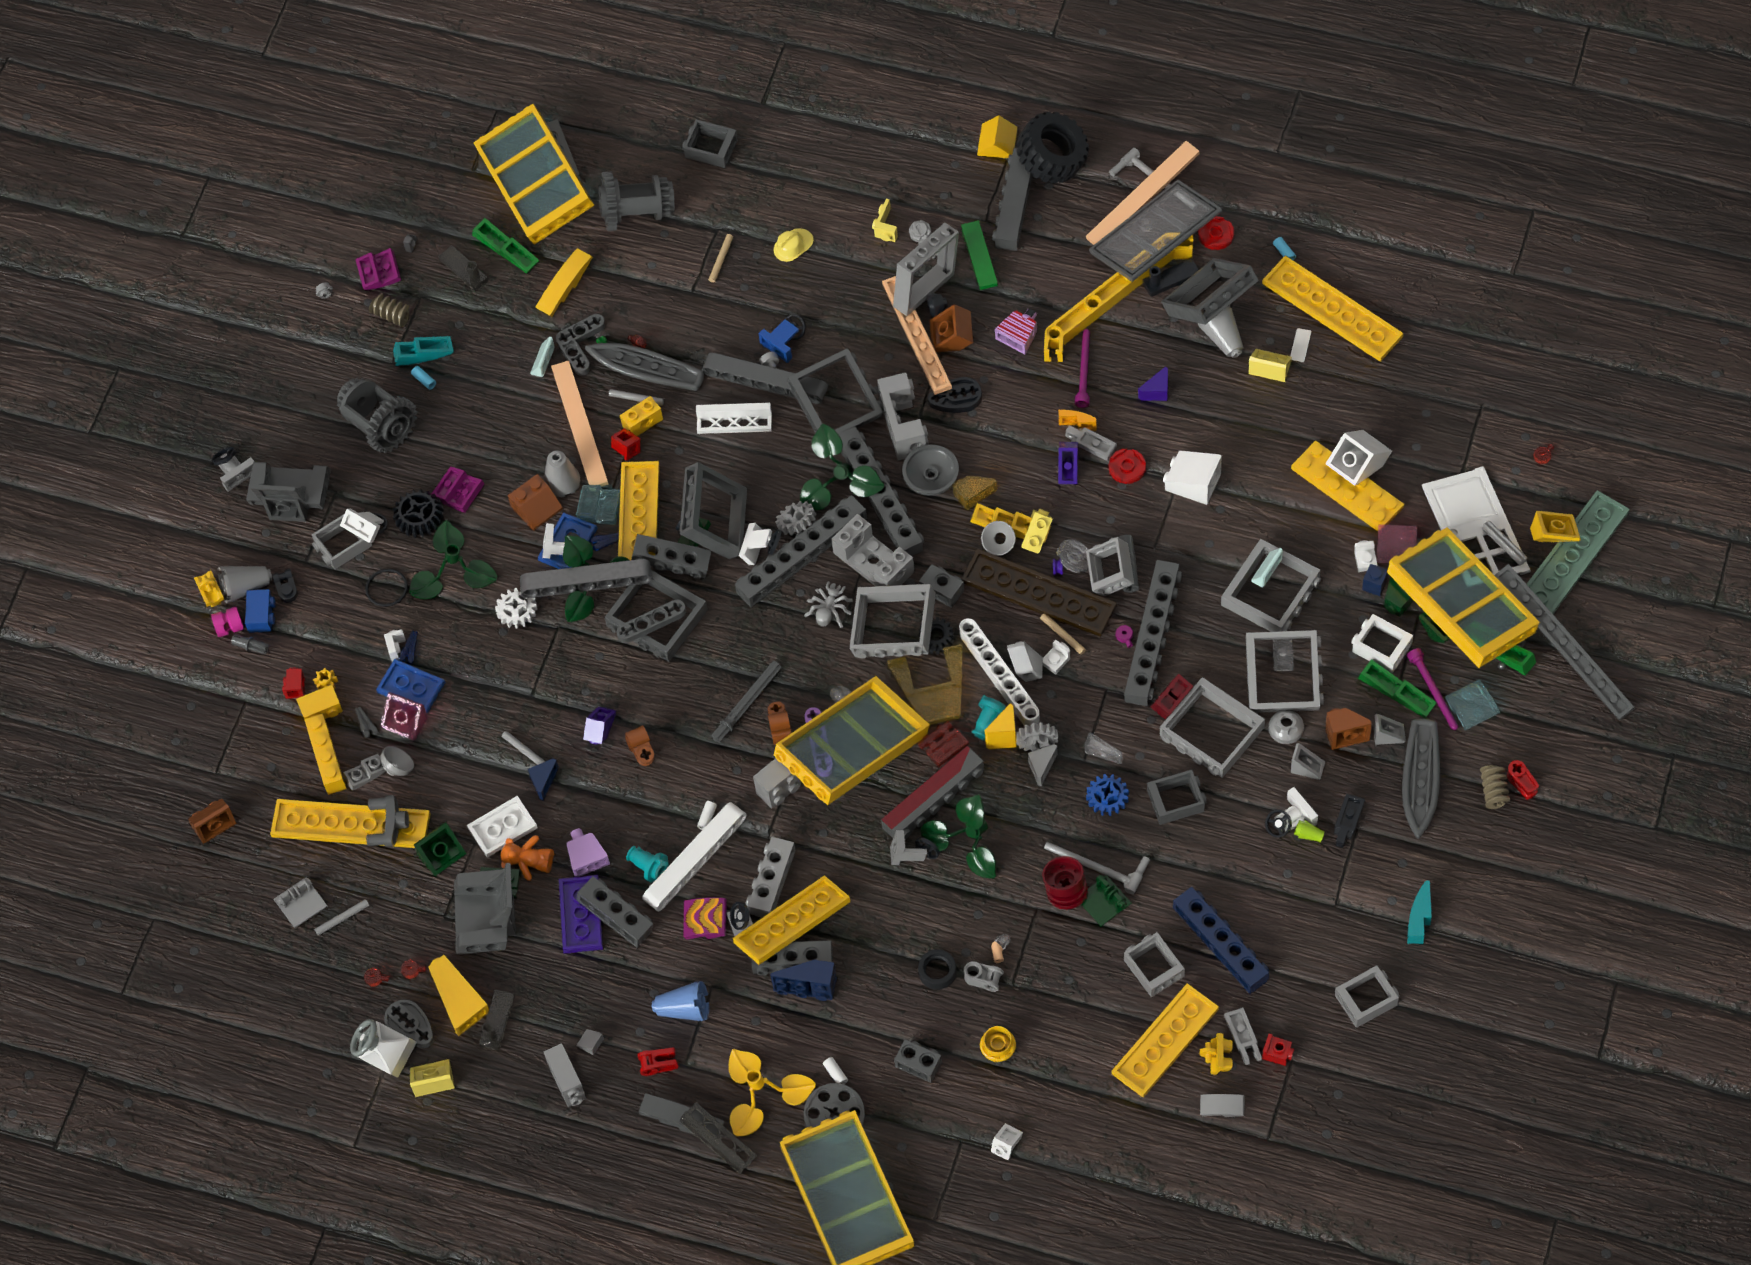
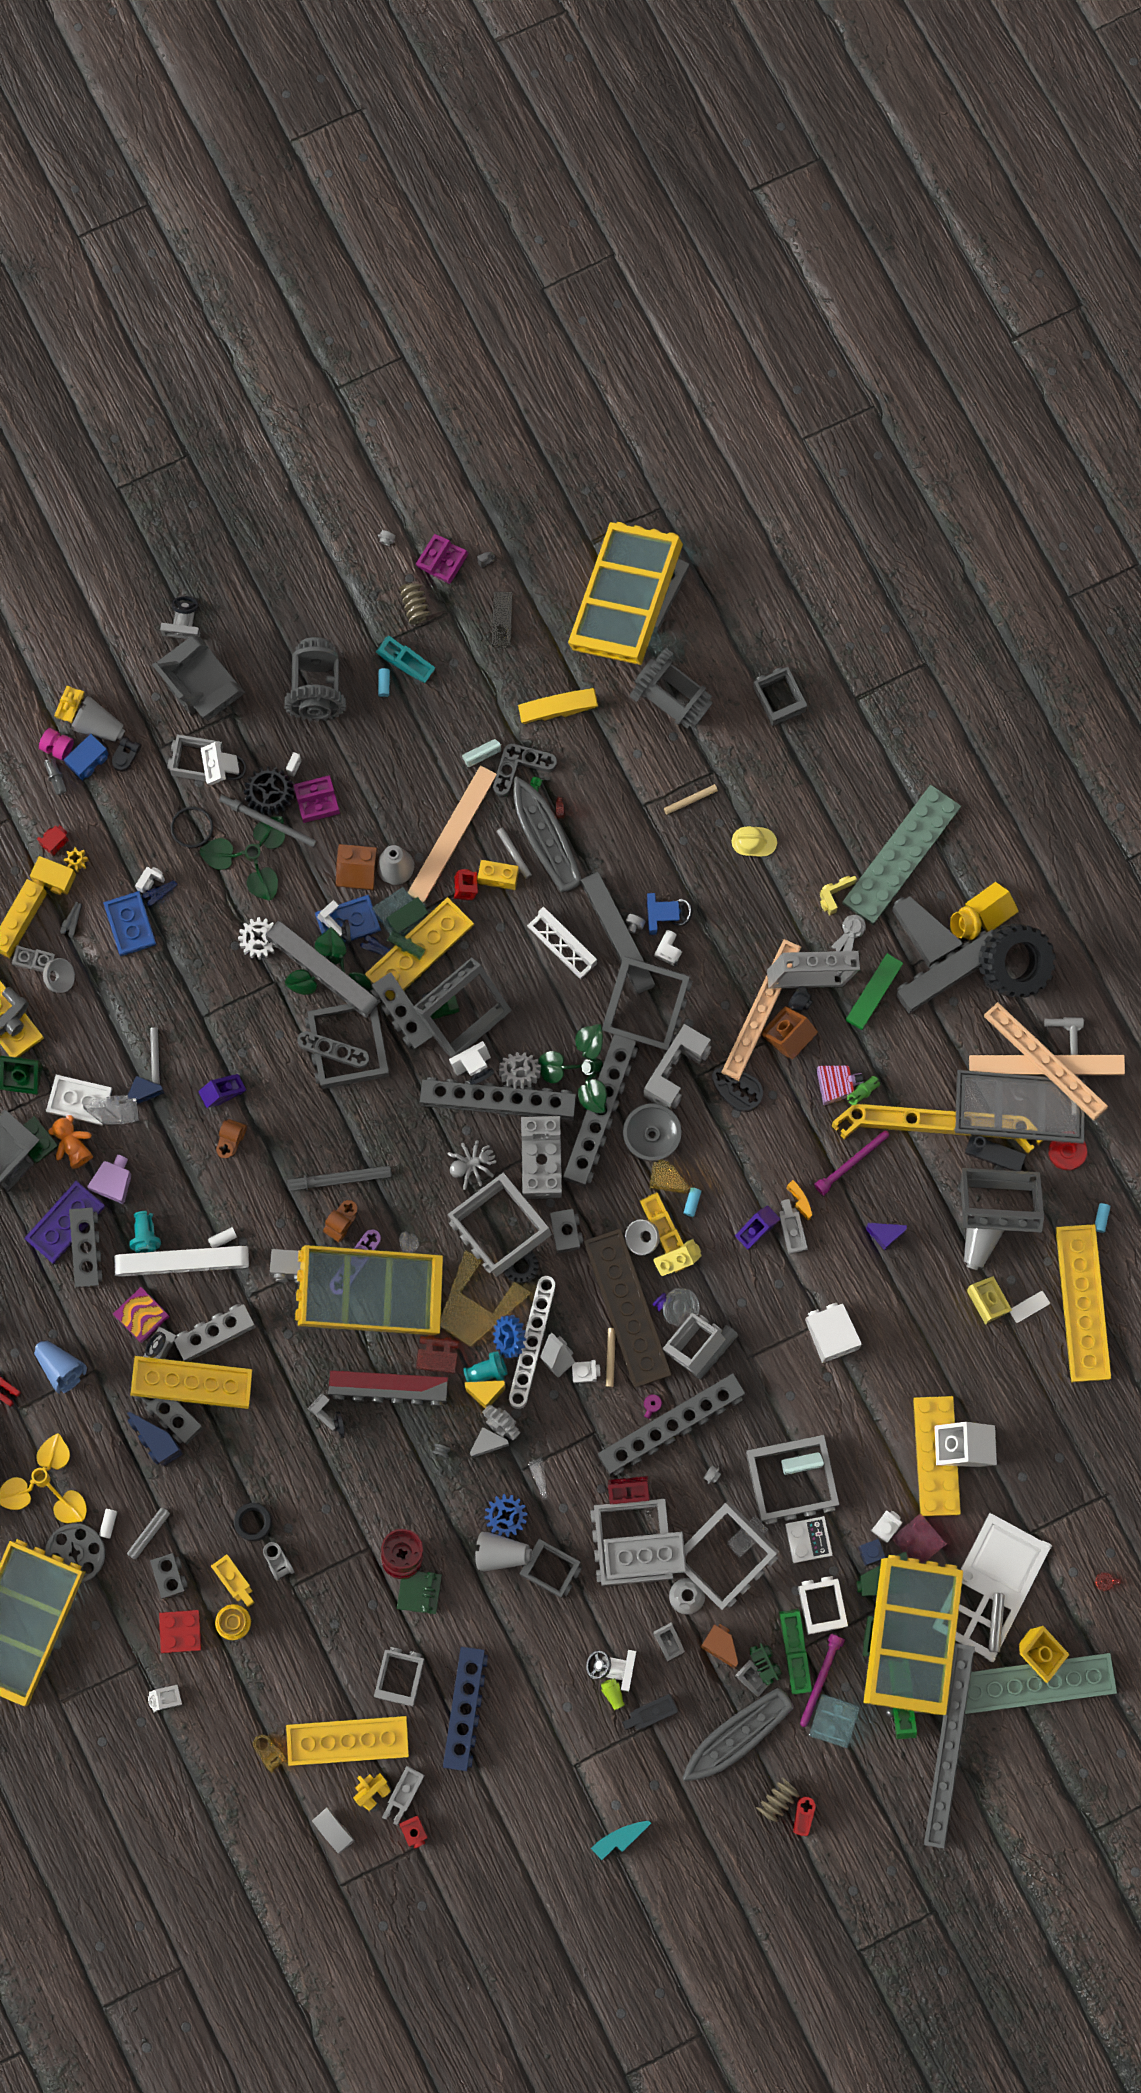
camera: 40 degrees right, 15 degrees up
(403, 716) = (97, 944): clear pink slope -> none
(405, 542) = (238, 806): none -> dark grey bar
(416, 480) = (293, 764): none -> white tile
(504, 246) = (549, 631): green slope -> none
(536, 802) = (113, 1109): none -> clear slope
(606, 497) = (407, 915): none -> dark green tile
(627, 513) = (406, 945): none -> clear green pin
(809, 358) = (666, 951): none -> white piece
(871, 1050) = (148, 1533): none -> light grey axle
(901, 163) = (901, 854): none -> sand green plate
(966, 1018) = (233, 1580): none -> yellow hinge
(967, 1089) = (180, 1631): none -> red plate
(970, 191) = (925, 932): none -> dark grey slope
(970, 811) = (384, 1442): dark green plant -> none
(980, 680) = (509, 1336): none -> blue gear
(992, 160) = (966, 923): none -> yellow piece
(998, 946) = (312, 1548): arm -> none
(1006, 490) = (692, 1202): none -> medium azure axle
(1015, 798) = (441, 1450): none -> dark grey bush
(1041, 316) = (863, 1090): none -> bright green pin
(1120, 1102) = (269, 1753): none -> clear yellow piece
(1127, 466) = (798, 1273): red tile -> none
(1130, 882) = (452, 1597): light grey bar -> none
(1132, 814) = (500, 1552): none -> light grey cone
(1140, 190) = (1046, 1061): none -> light nougat tile
(1215, 637) = (712, 1474): none -> light grey plate
(1230, 722) = (644, 1555): none -> light grey tile
(1325, 615) = (808, 1539): none -> white plate
(1356, 1016) = (541, 1857): light grey window -> none
(1397, 708) = (774, 1669): none -> dark green hinge

